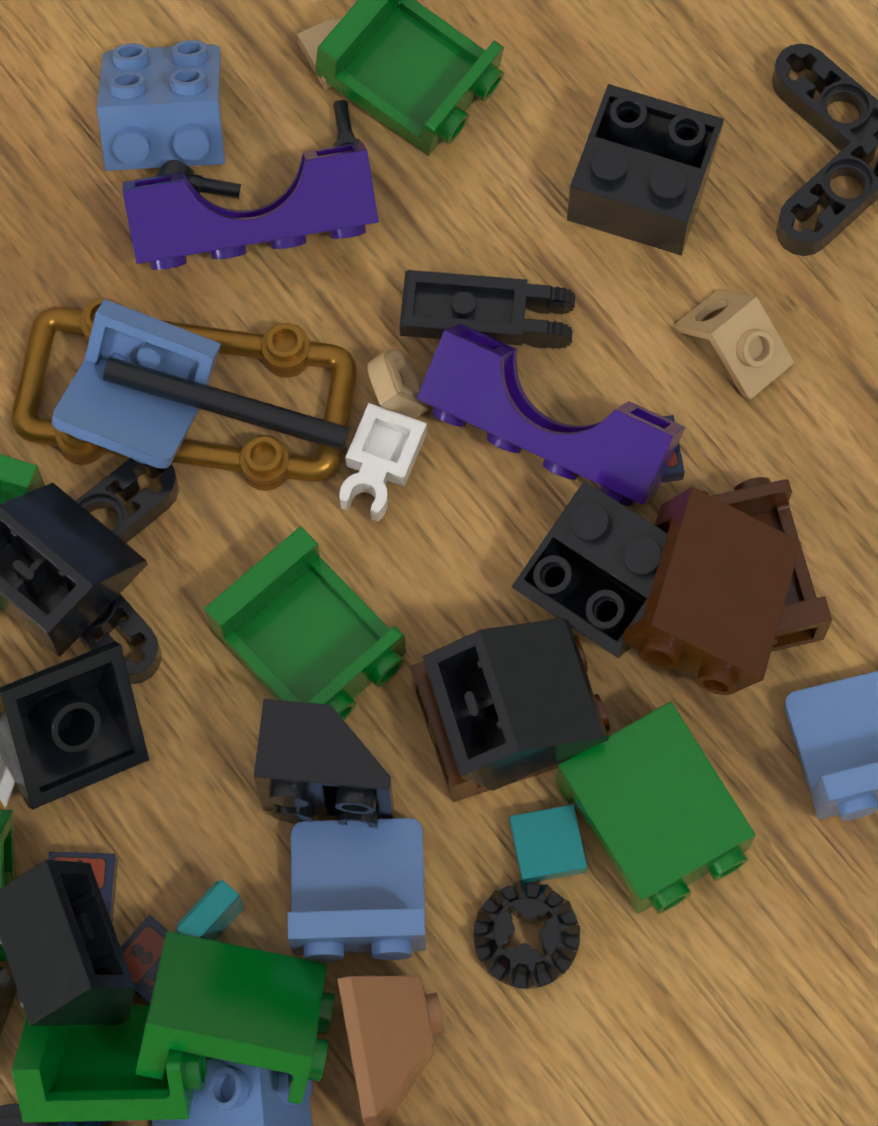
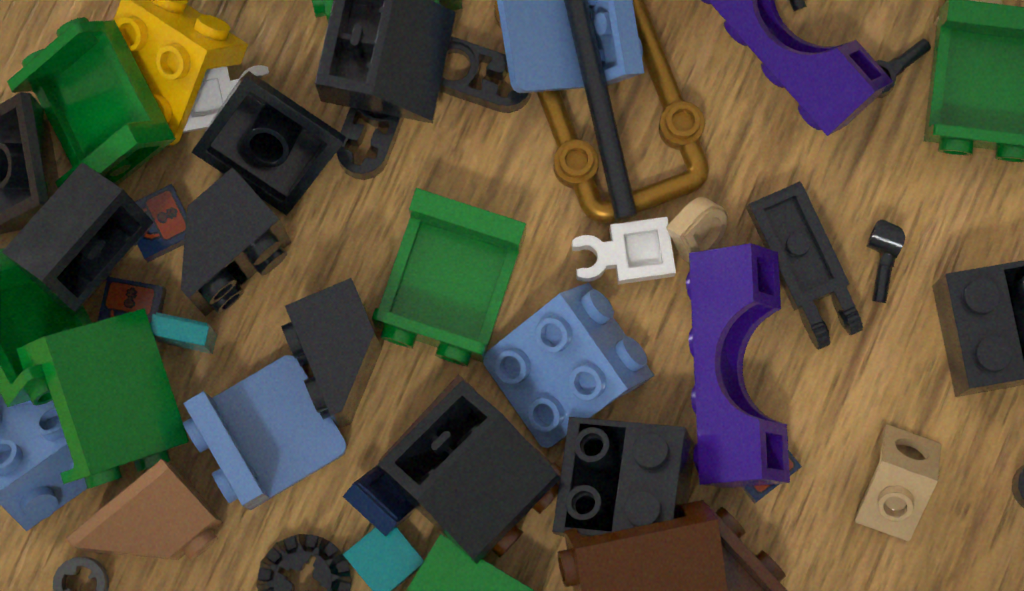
camera: 60 degrees right, 10 degrees up
(142, 809) = (227, 242): none -> black slope
(454, 568) = (566, 363): none -> medium blue bracket
(489, 811) = (379, 501): none -> dark blue tile
(507, 228) = (888, 240): none -> black hand

